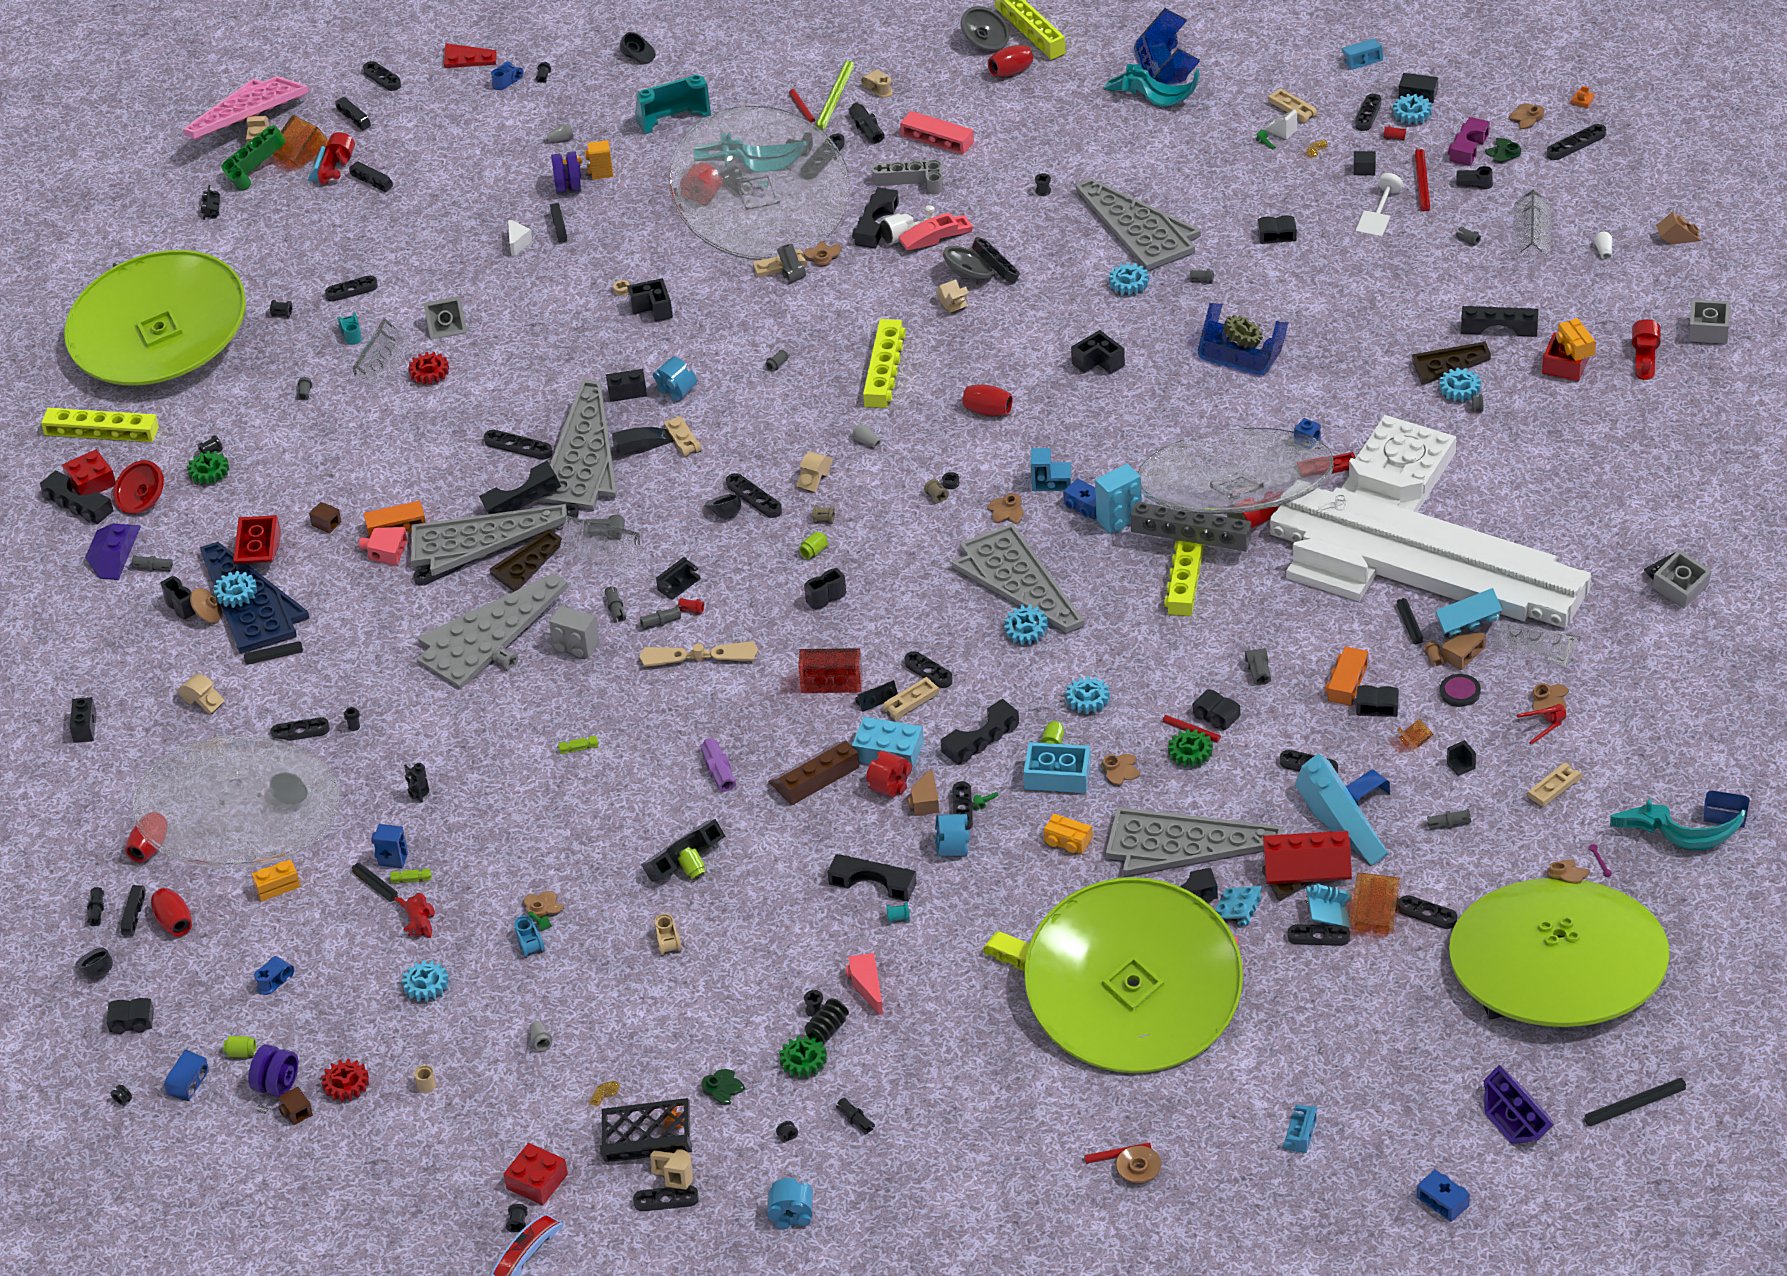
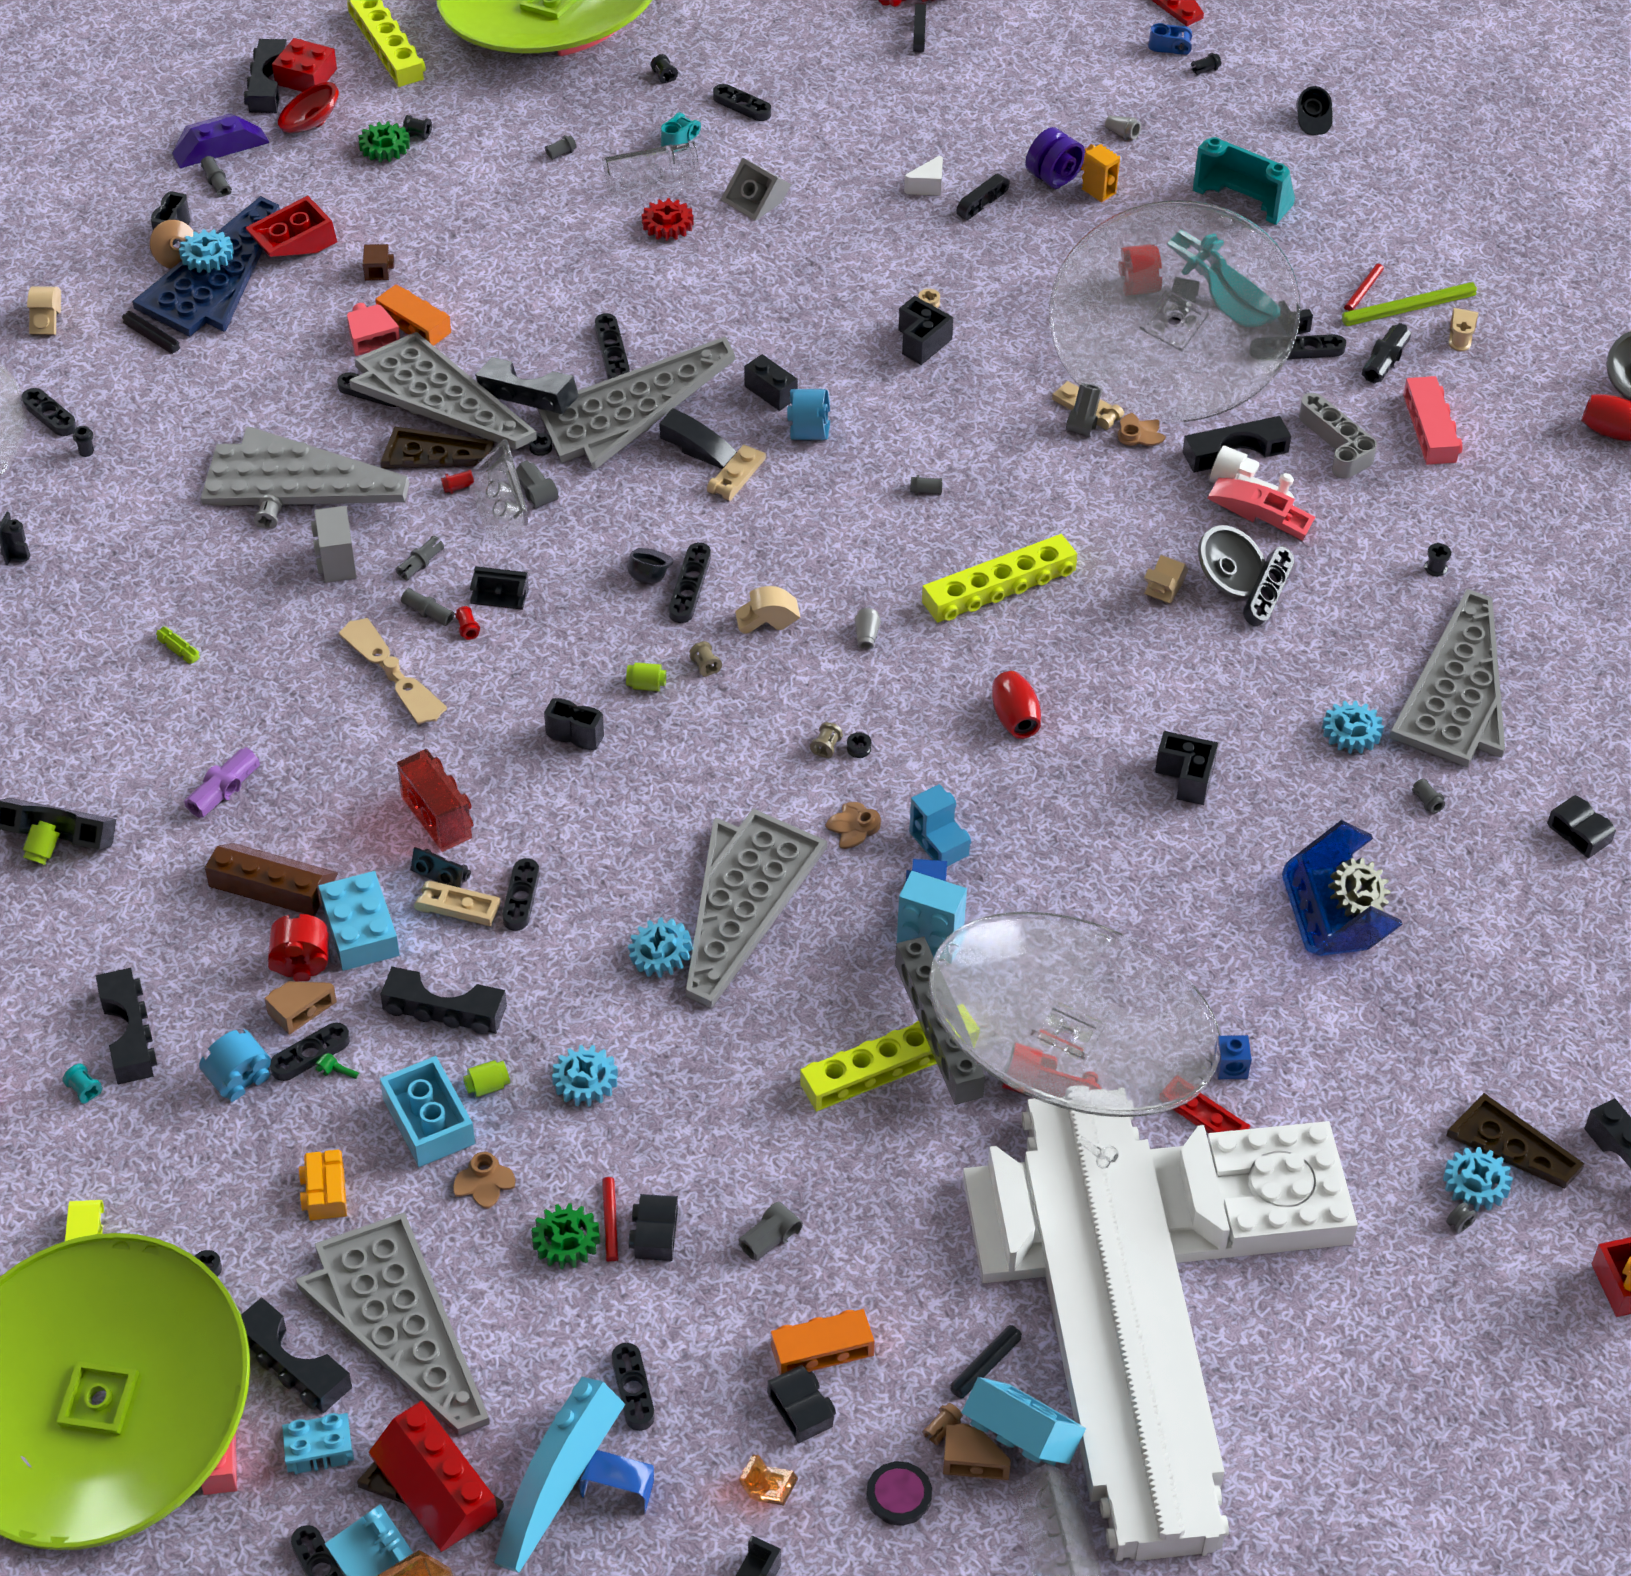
camera: 50 degrees right, 5 degrees up
(564, 563) = (457, 481): none -> red pin

